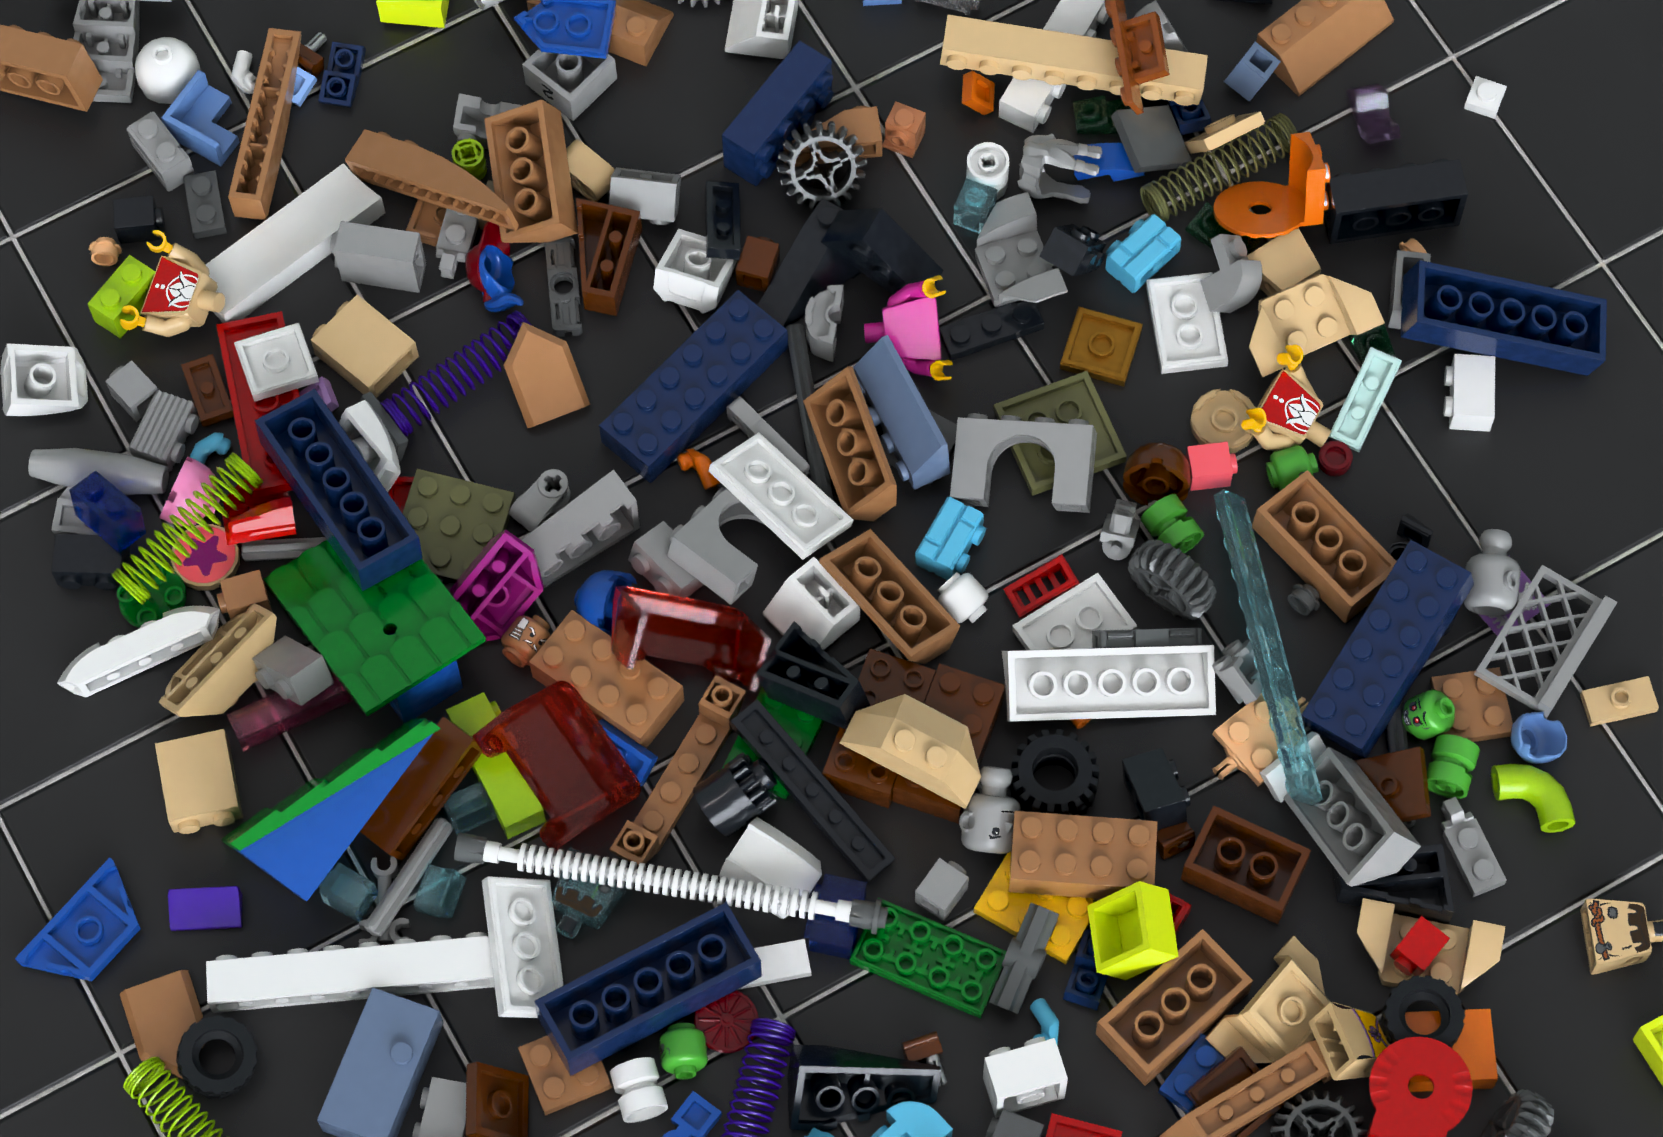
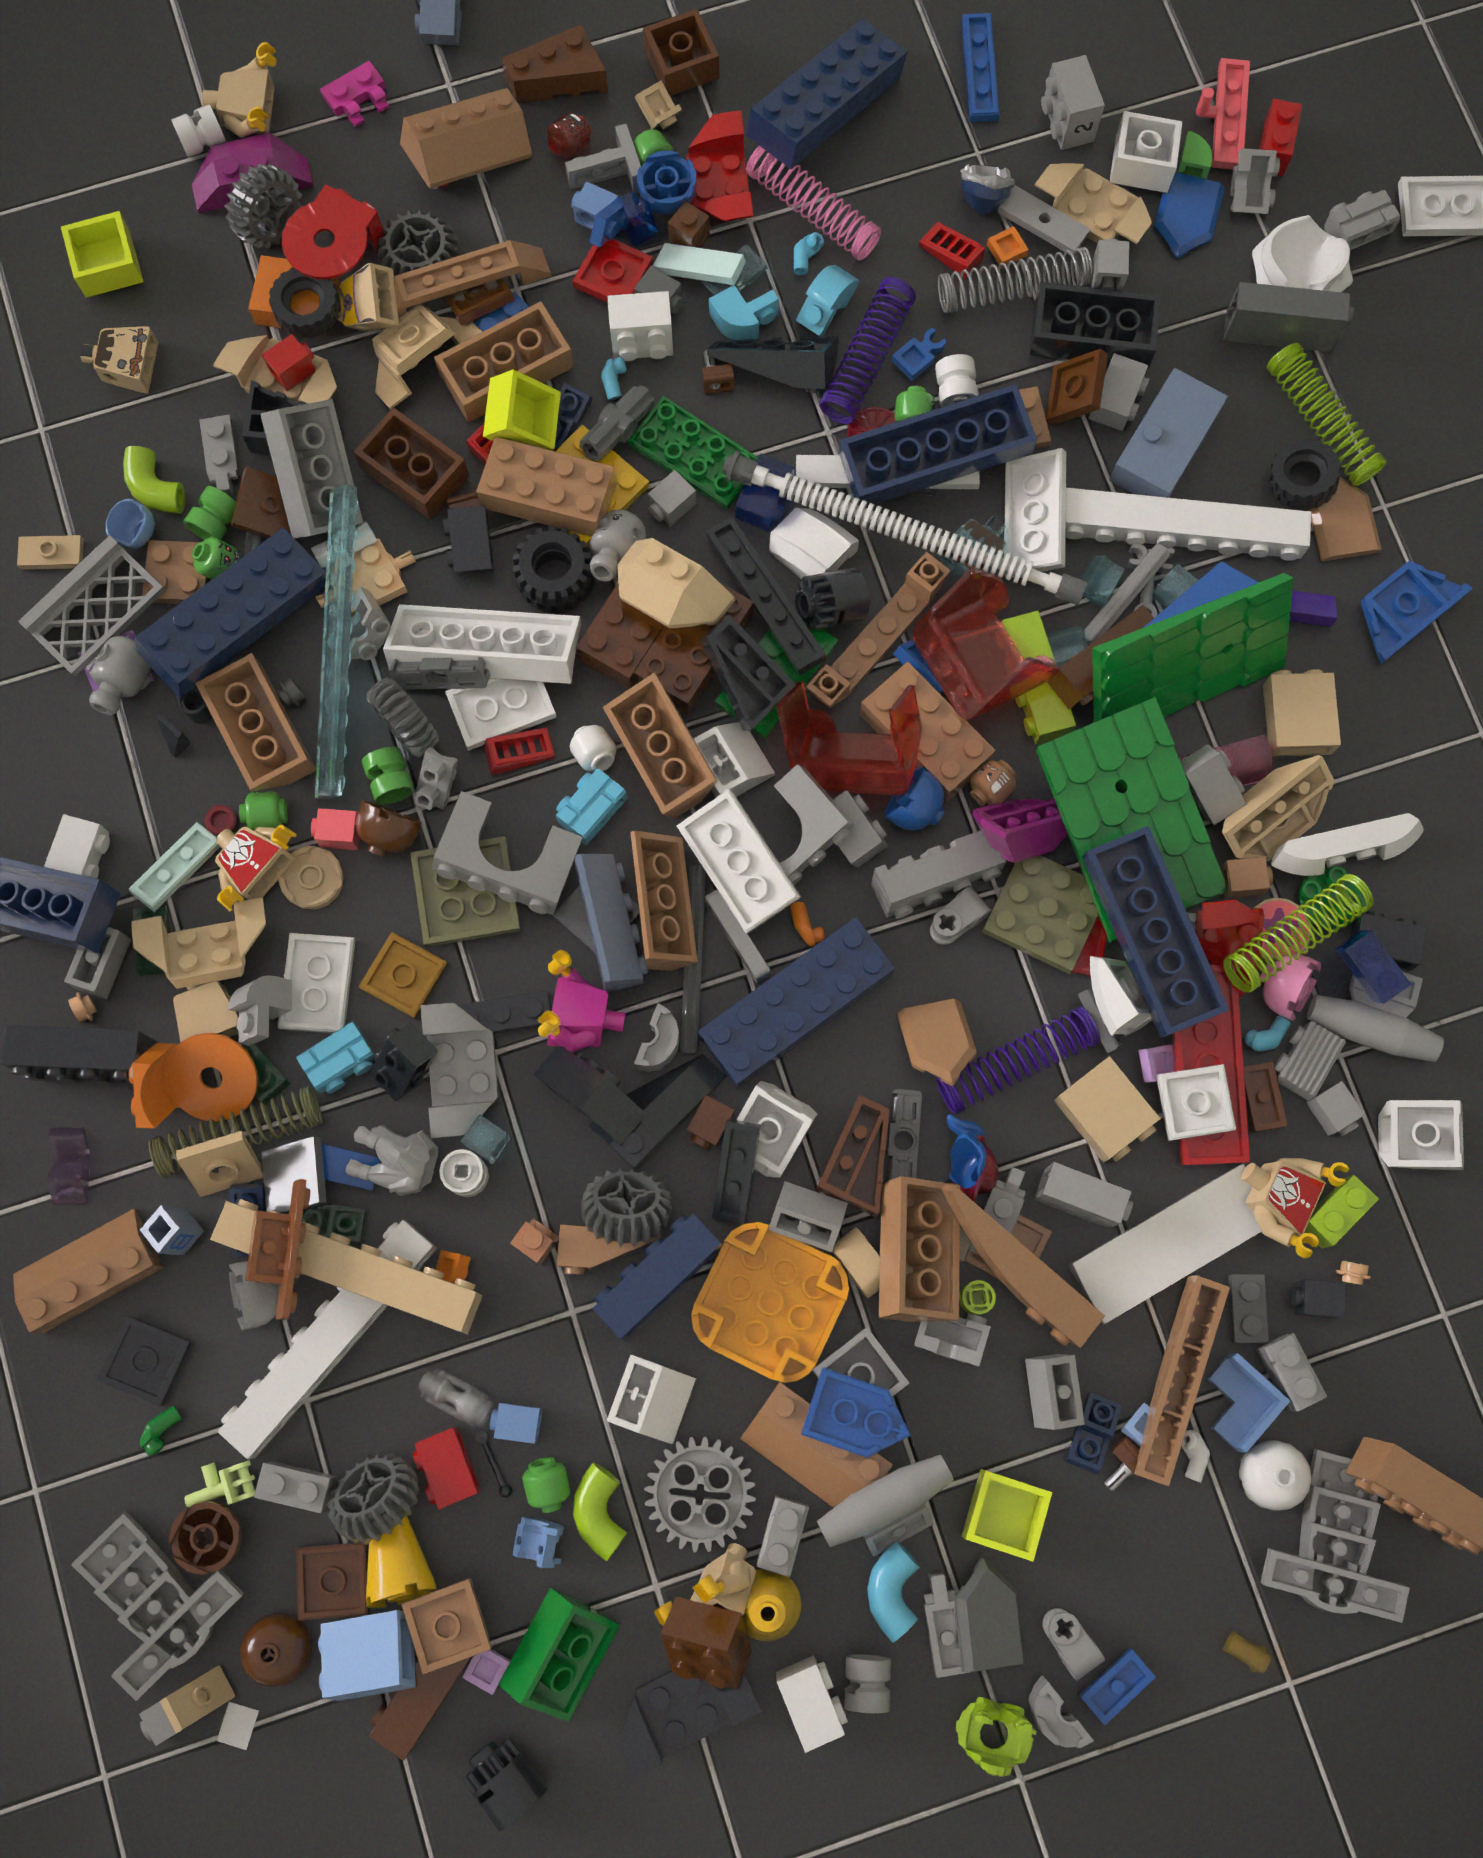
camera: 170 degrees left, 10 degrees up
(384, 92) = (1054, 1391): none -> light grey brick
(667, 119) = (770, 1302): none -> light orange plate

